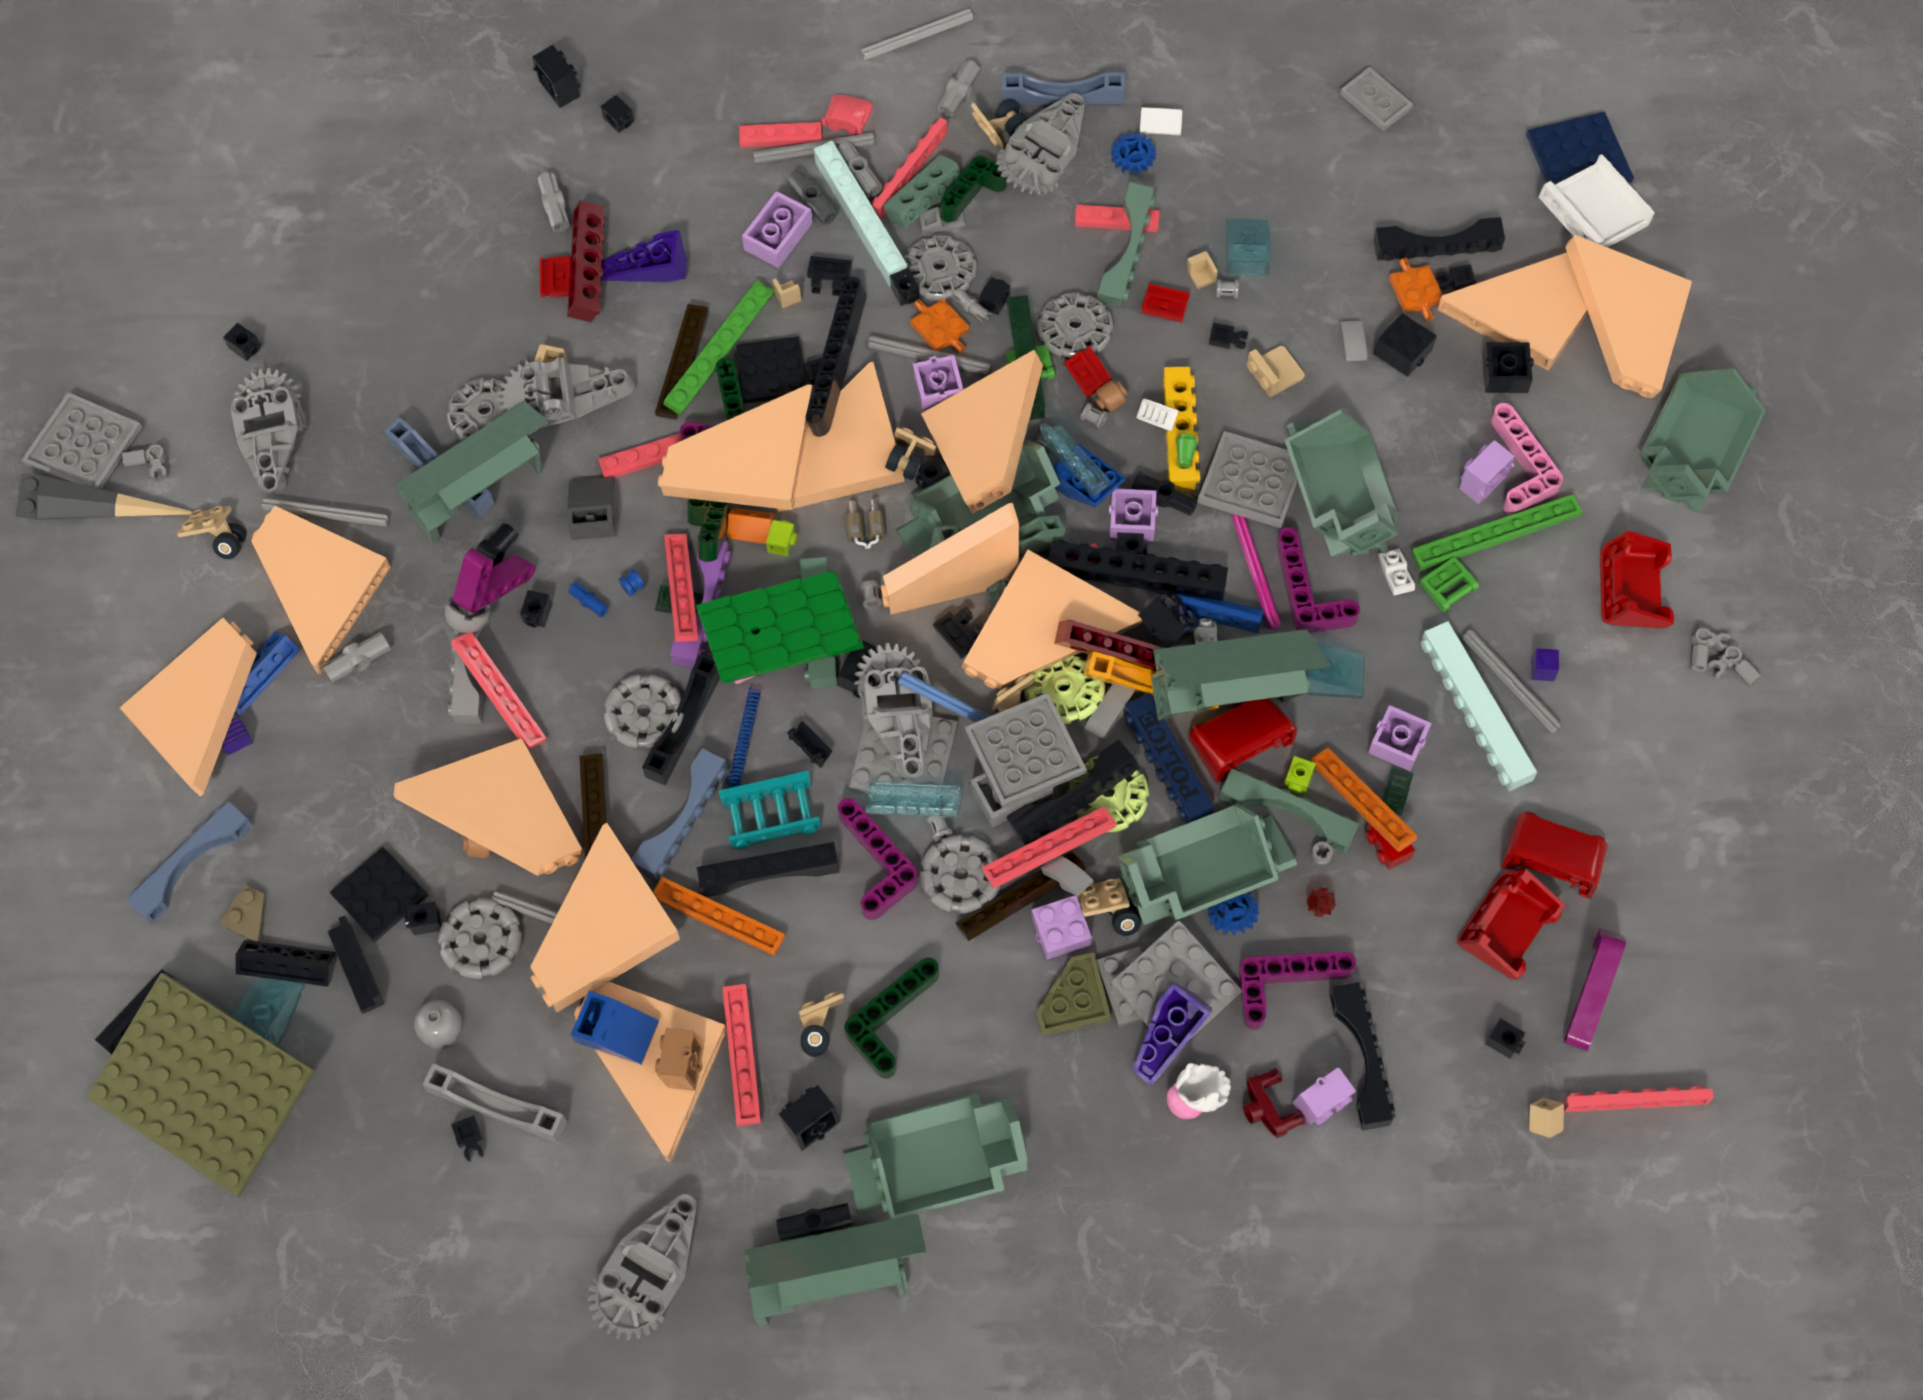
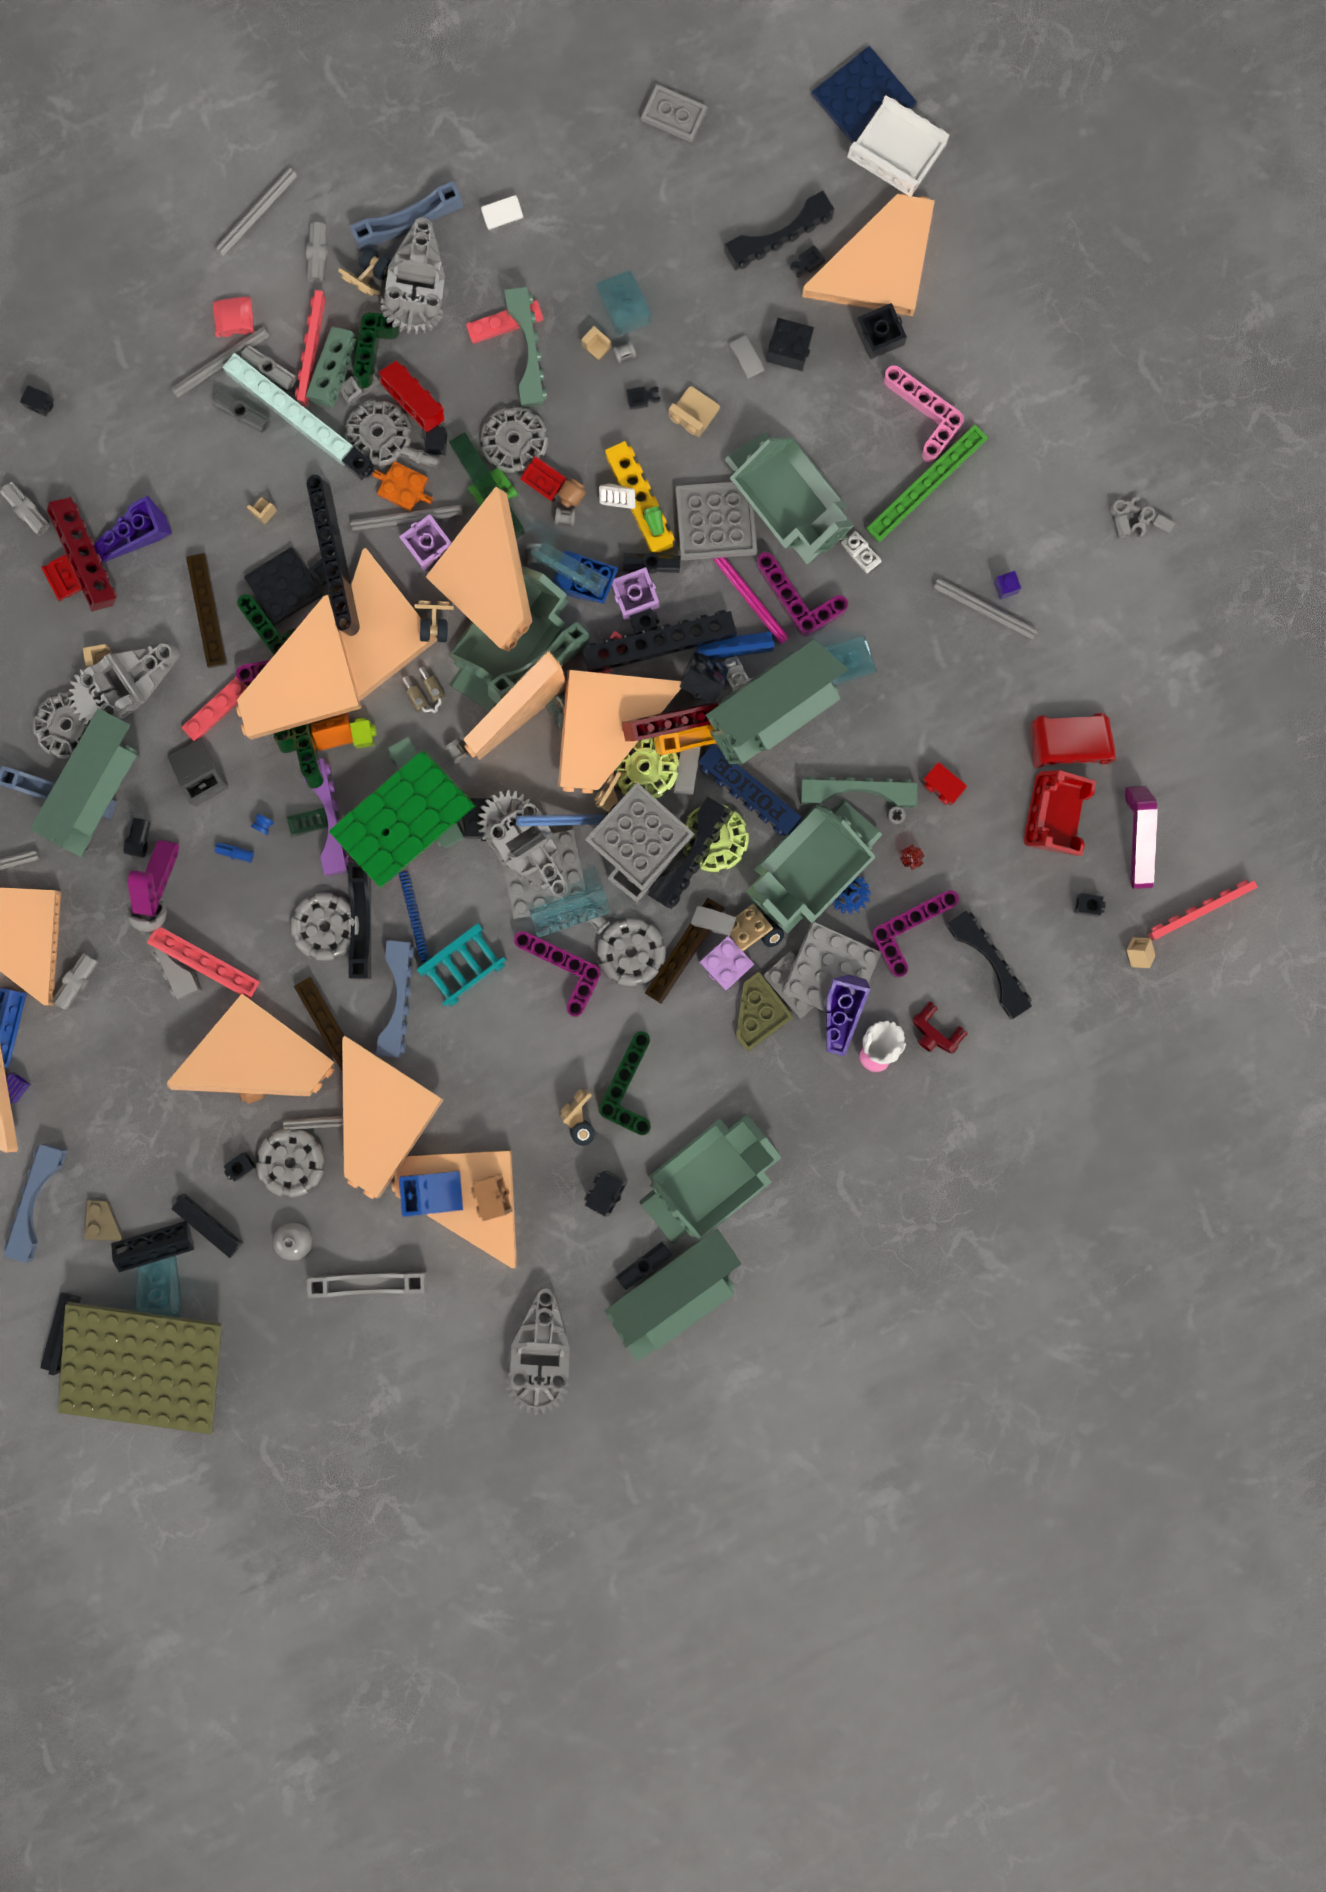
camera: 20 degrees left, 20 degrees up
(378, 894) = (194, 1161): black plate -> none
(467, 1134) = (358, 1313): black plate -> none
(533, 601) = (191, 873): black brick -> none
(680, 587) = (304, 813): coral plate -> none
(718, 347) = (231, 585): bright green plate -> none
(718, 916) = (462, 1066): orange plate -> none
(730, 875) = (483, 1013): black arch -> none
(741, 1055) = (531, 1165): coral plate -> none
(777, 229) = (227, 456): lavender brick -> none
(780, 134) = (185, 360): coral plate -> none
(810, 744) = (472, 899): black hinge -> none
(828, 269) = (288, 473): black plate -> none
(932, 466) = (457, 617): black brick -> none
(955, 634) = (539, 756): black plate -> none
(989, 244) = (411, 396): none -> red brick
(1049, 847) = (690, 905): coral plate -> none
(1133, 153) = (485, 249): blue gear -> none
(1165, 303) = (579, 386): red plate -> none
(1241, 735) = (798, 752): red windscreen -> none
(1299, 776) = (855, 761): lime brick -> none
(1324, 1096) = (977, 1011): lavender brick -> none
(1363, 800) = (912, 762): orange plate -> none
(1396, 807) = (933, 754): clear green slope -> none
(1399, 738) = (920, 697): lavender brick -> none
(1416, 289) = (778, 285): orange plate -> none
(1446, 577) = (900, 543): bright green plate -> none
(1478, 706) = (968, 642): light aqua brick -> none
(1486, 471) = (900, 434): lavender brick -> none
(1632, 312) = (963, 236): light nougat slope -> none
(1632, 581) = (1048, 483): red windscreen -> none
(1701, 435) = (1057, 326): sand green panel -> none

